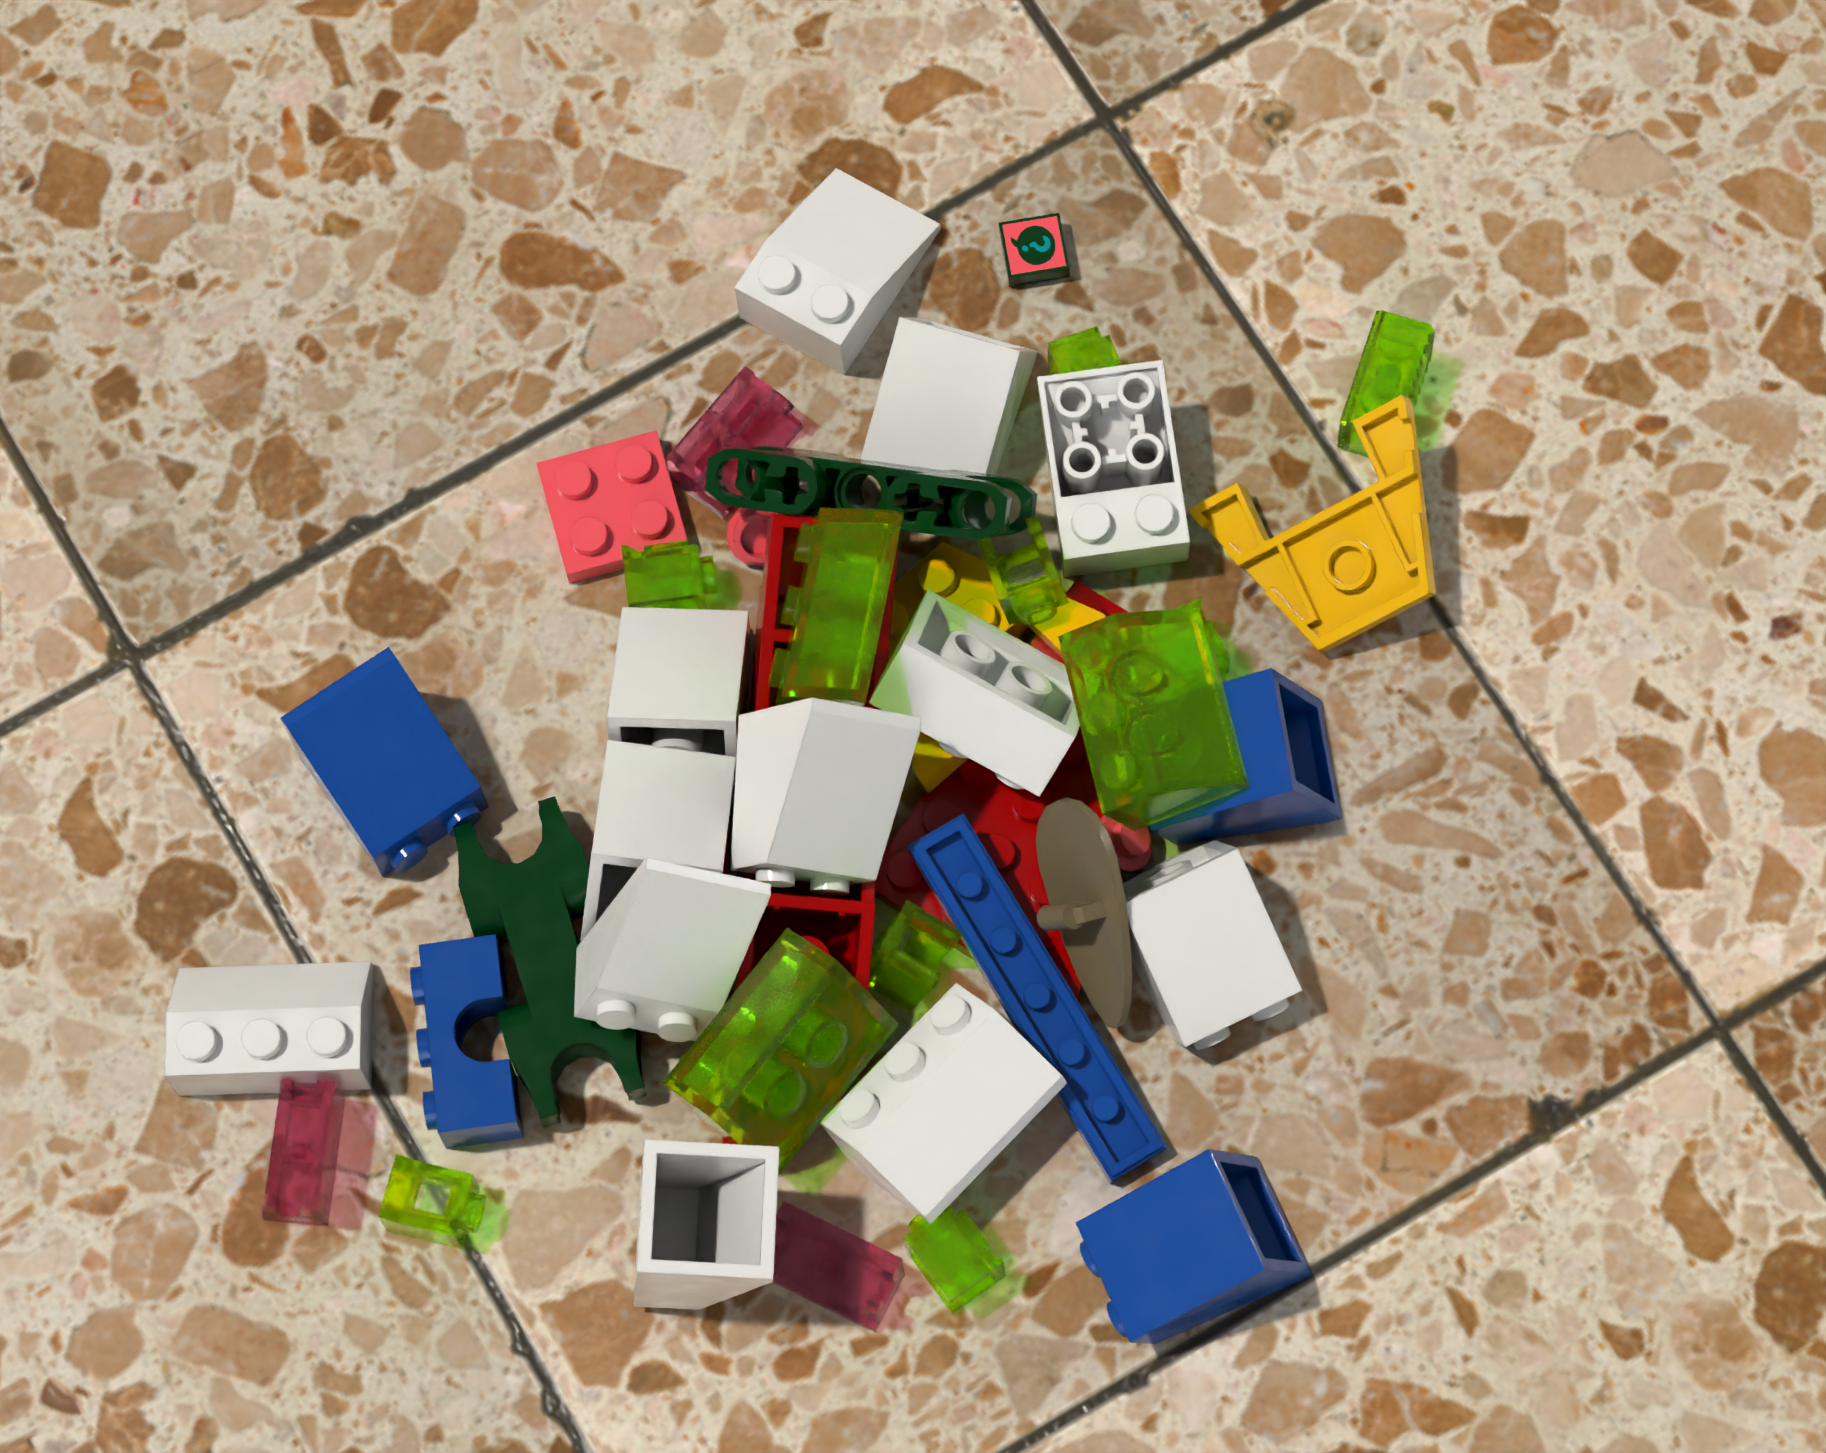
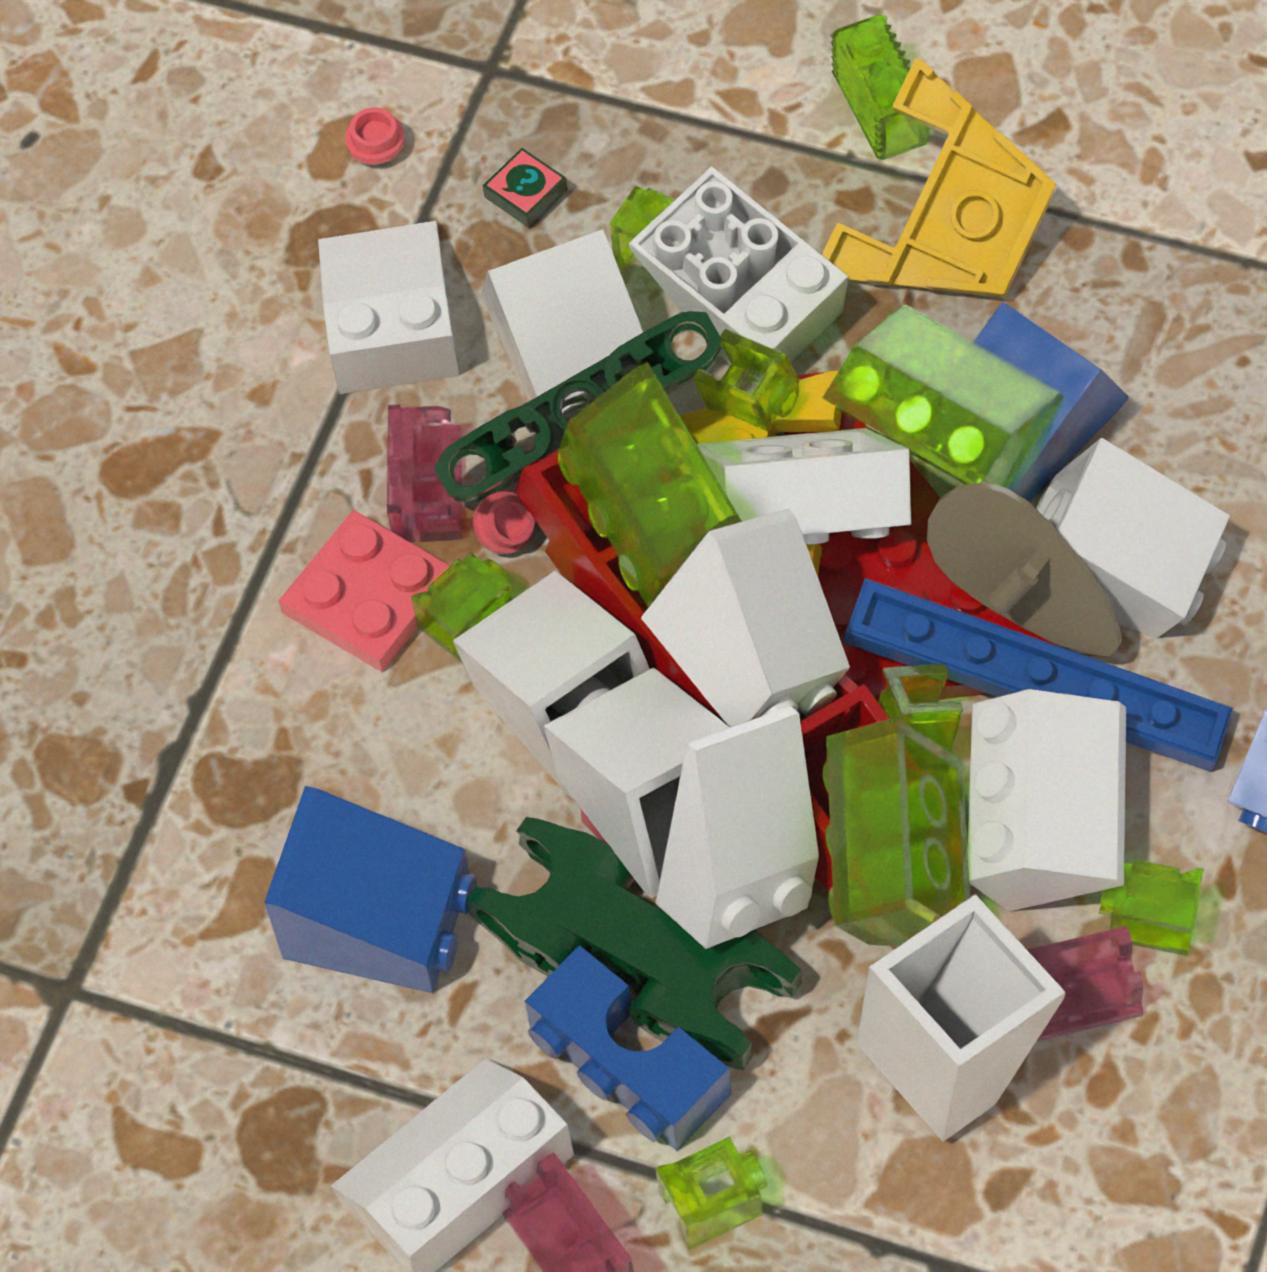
camera: 40 degrees left, 10 degrees down
(955, 110) = (374, 136): none -> coral plate

